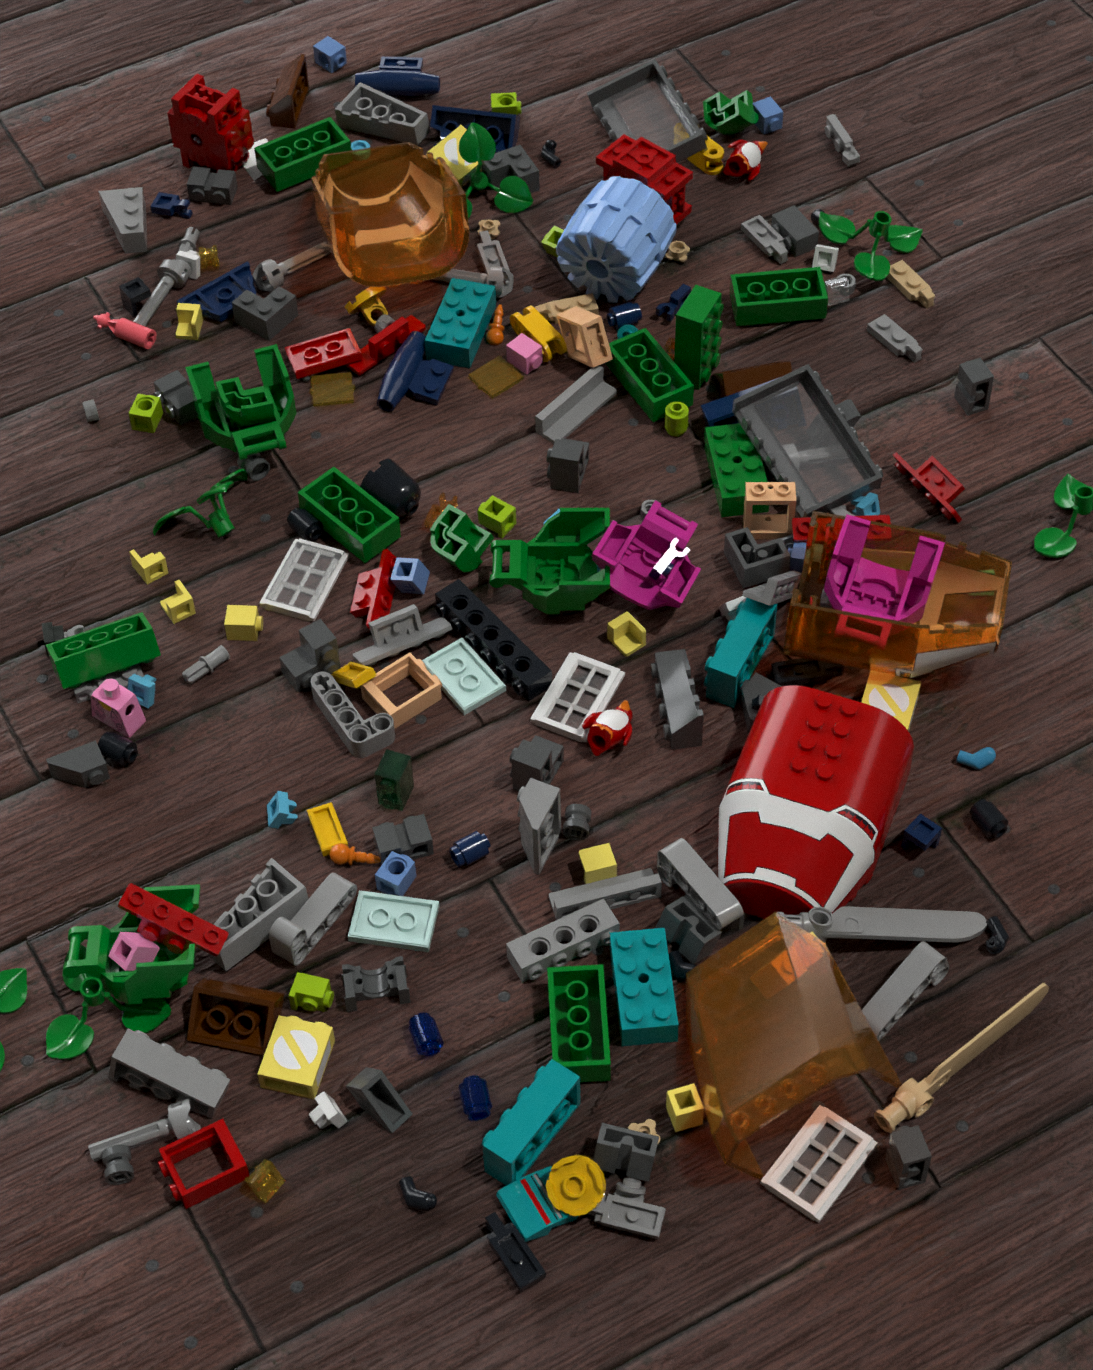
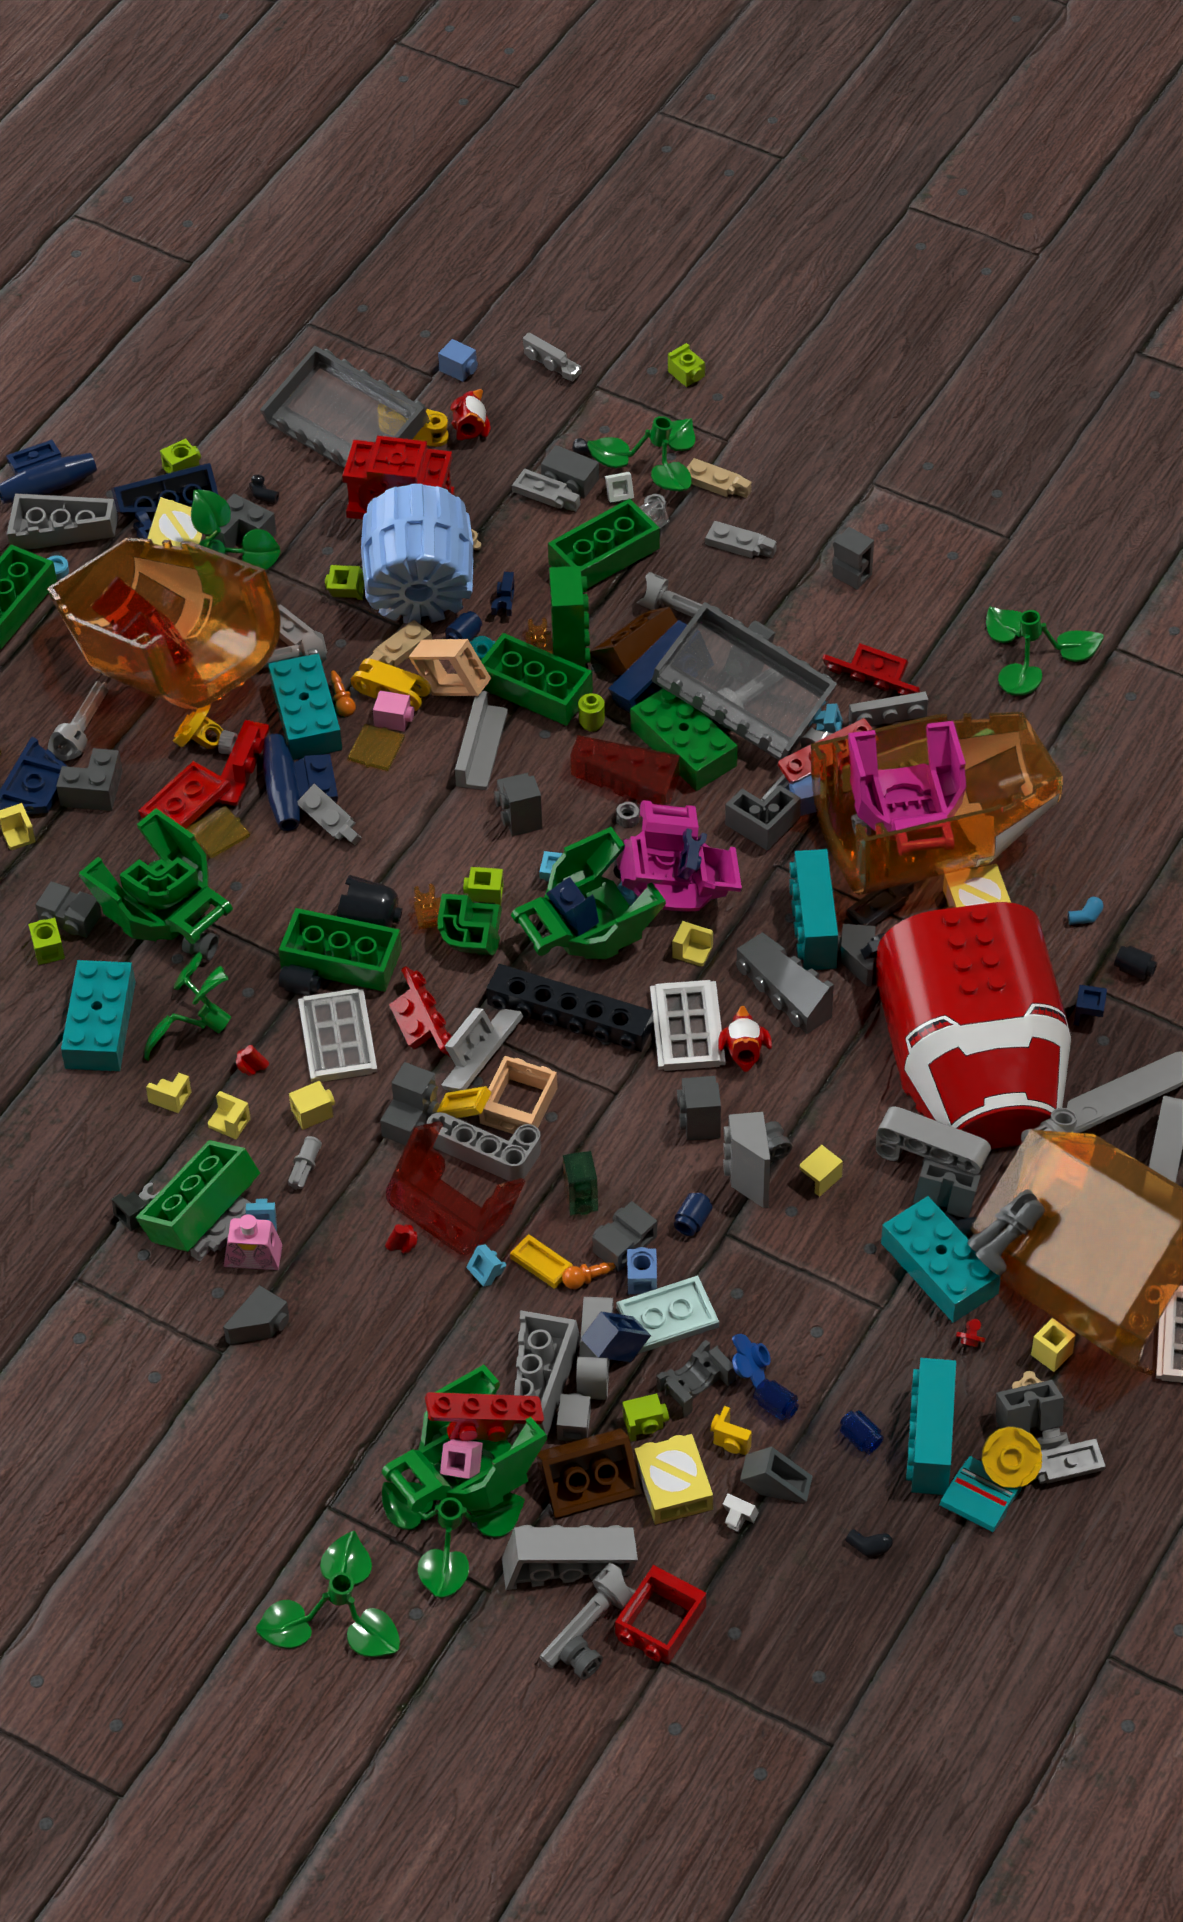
camera: 30 degrees left, 0 degrees up
(118, 748) = (282, 1282): black brick -> none
(139, 484) = (98, 1015): none -> teal brick
(223, 569) = (250, 1060): none -> red plate
(232, 757) = (402, 1238): none -> red plate
(256, 965) = (573, 1417): none -> light grey brick
(265, 1180) = (726, 1600): clear yellow tile -> none
(279, 743) = (438, 1207): none -> clear red windscreen
(329, 916) = (615, 1336): none -> dark blue panel
(365, 1045) = (729, 1436): none -> yellow bracket
(376, 211) = (134, 615): none -> clear red windscreen
(410, 575) = (447, 982): medium blue brick -> none
(419, 410) = (328, 814): none -> light grey hinge
(425, 990) = (750, 1359): none -> blue plate
(464, 676) = (571, 1055): light aqua tile -> none
(514, 1253) = (990, 1545): black hinge -> none
(545, 560) = (574, 908): none -> dark blue slope
(569, 928) = (855, 1219): light grey brick -> none
(579, 1021) = (907, 1315): green brick -> none
(616, 891) = (844, 1194): light grey panel -> none
(623, 1065) = (970, 1338): none -> red plate
(674, 476) = (626, 769): none -> clear red wedge
(709, 983) = (1011, 1222): none -> dark grey piece
(729, 608) = (773, 873): white tile -> none
(730, 115) = (423, 374): green brick -> none
(769, 525) = (755, 776): light nougat window -> none
(776, 589) = (815, 840): light grey panel -> none
(795, 350) = (657, 594): none -> light grey piece
(922, 519) = (890, 709): none -> light grey plate
(946, 187) = (685, 365): none -> lime brick

